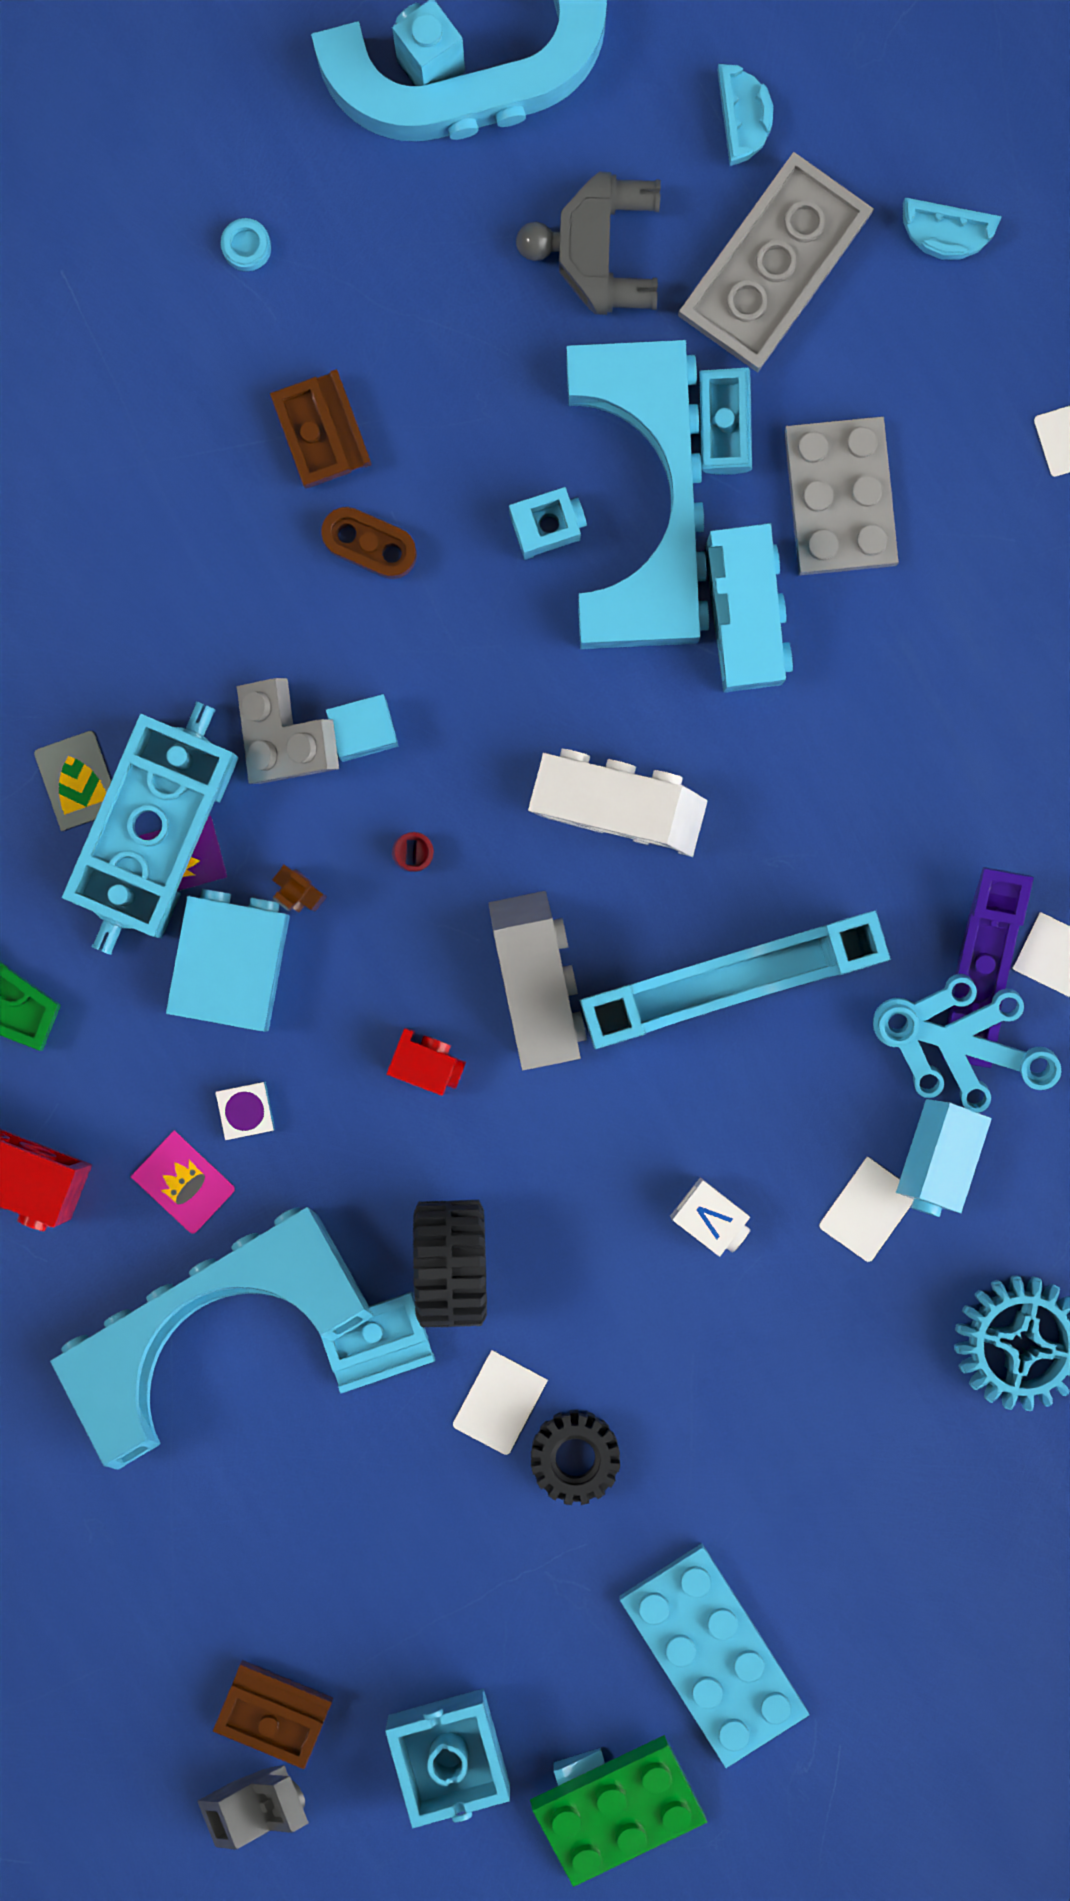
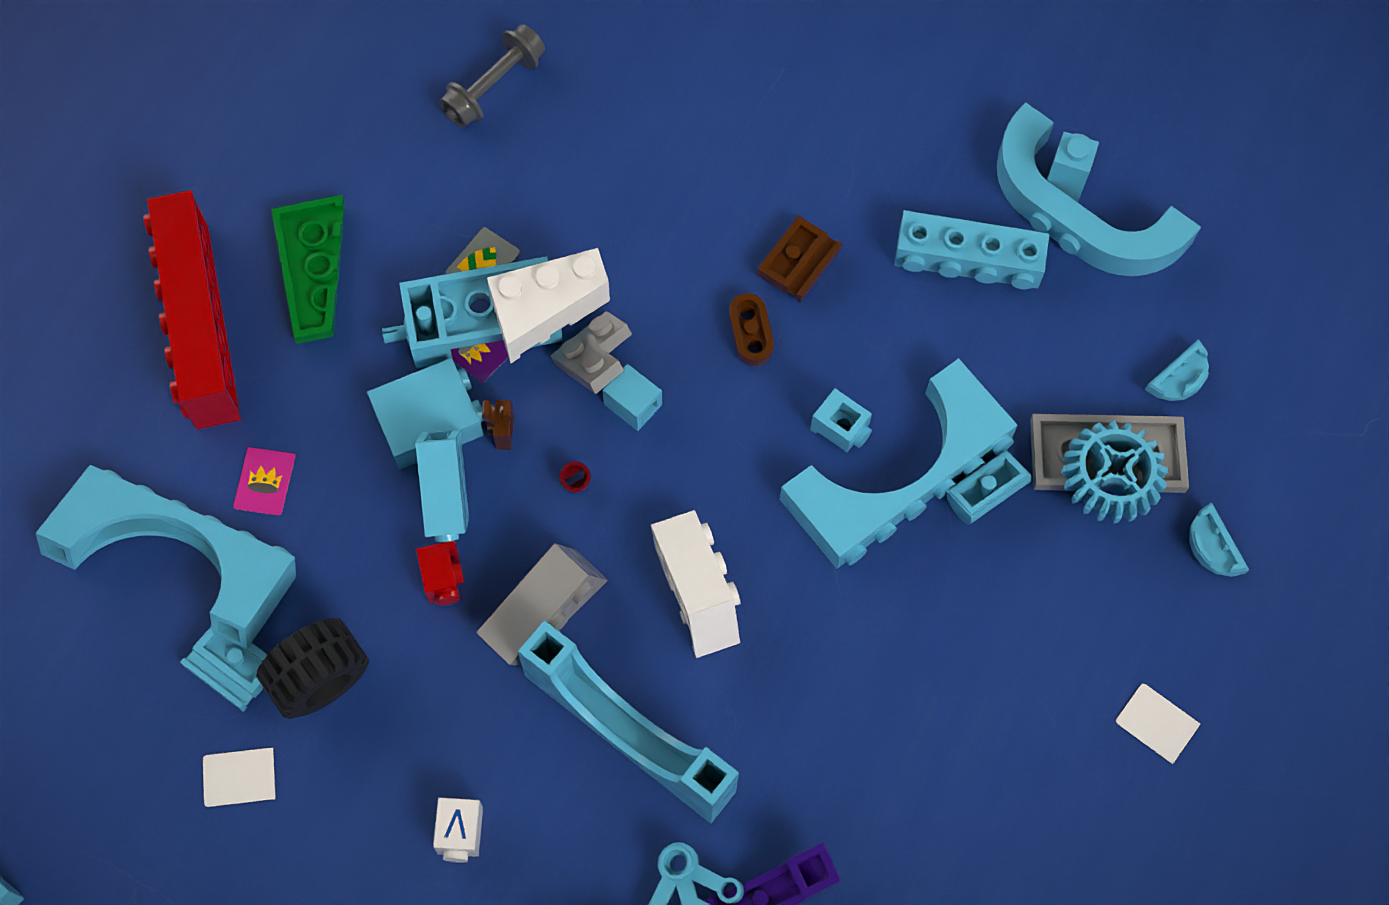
camera: 50 degrees right, 20 degrees down
(202, 752) = (546, 297): none -> white wedge
(245, 244) = (877, 152): medium azure tile -> none
(245, 1110) = (336, 486): tile -> none
(336, 1001) = (442, 484): none -> medium azure brick
(443, 231) = (971, 250): none -> medium azure brick
(569, 1487) = (208, 838): black tyre -> none
(586, 241) = (1032, 333): dark grey connector -> none
(747, 607) = (881, 576): medium azure wedge -> none
(828, 277) = (1099, 446): none -> medium azure gear
(841, 496) = (997, 593): light grey plate -> none

